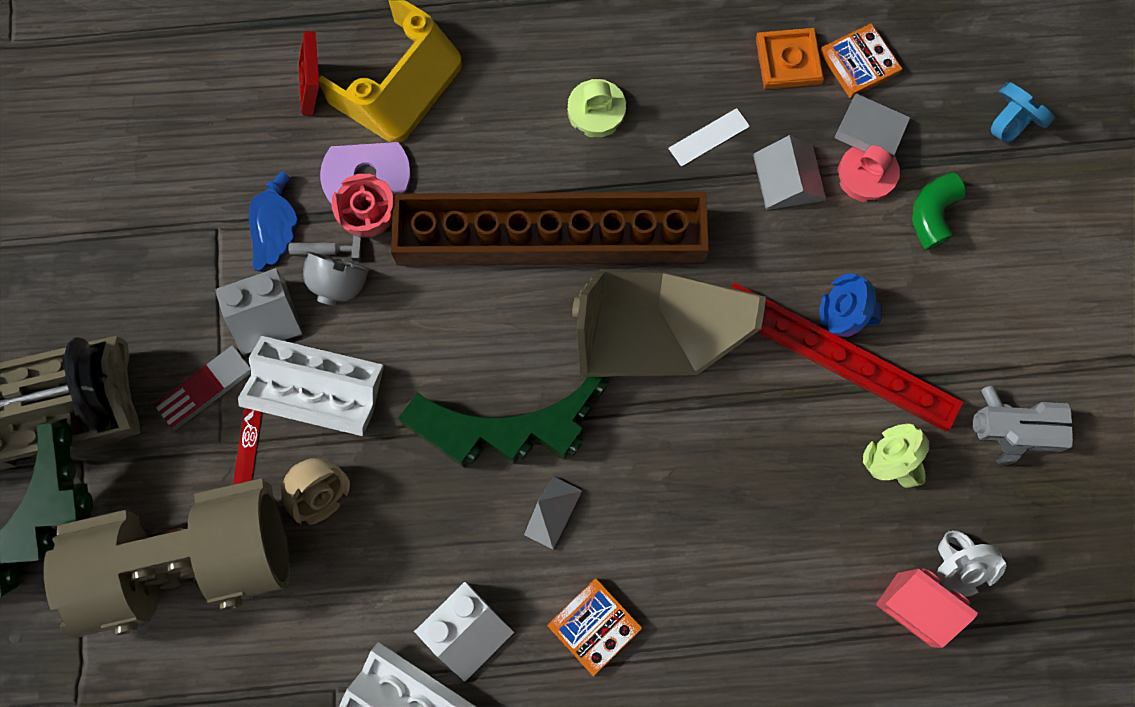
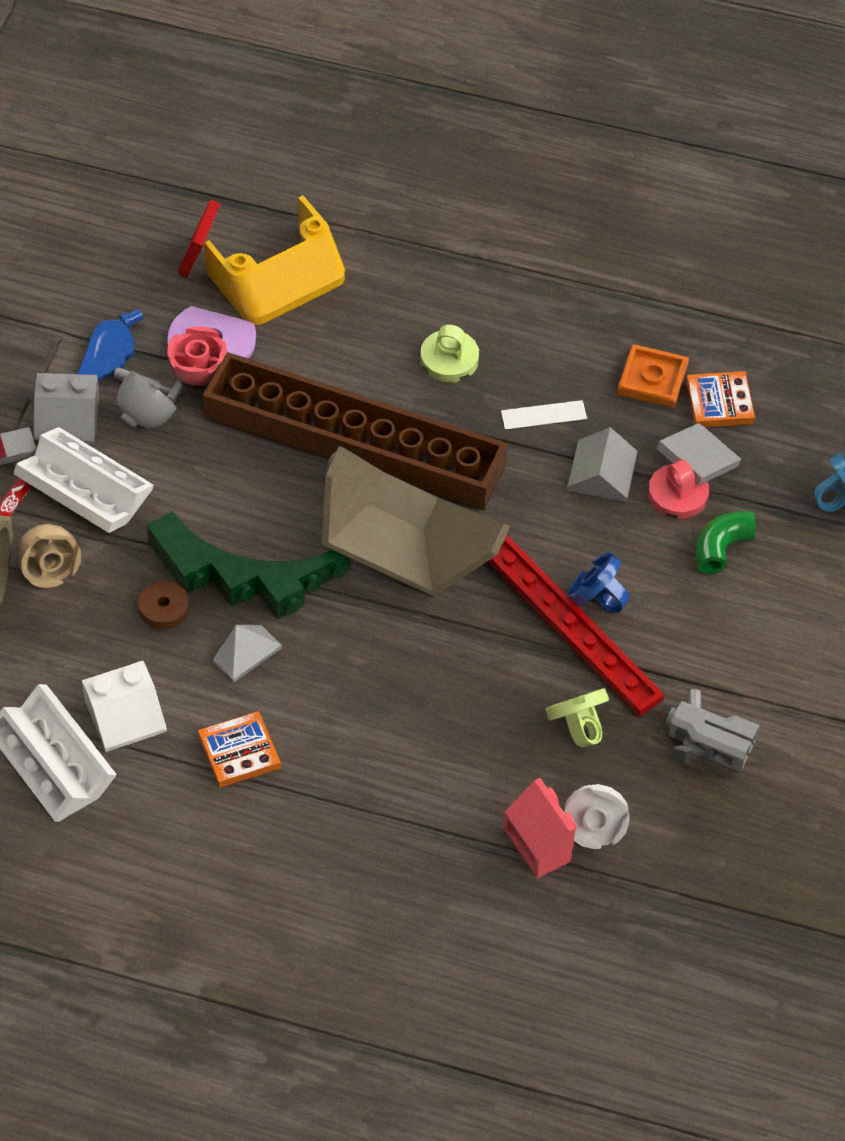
camera: 20 degrees right, 20 degrees down
(437, 484) = (163, 593): none -> reddish brown piece

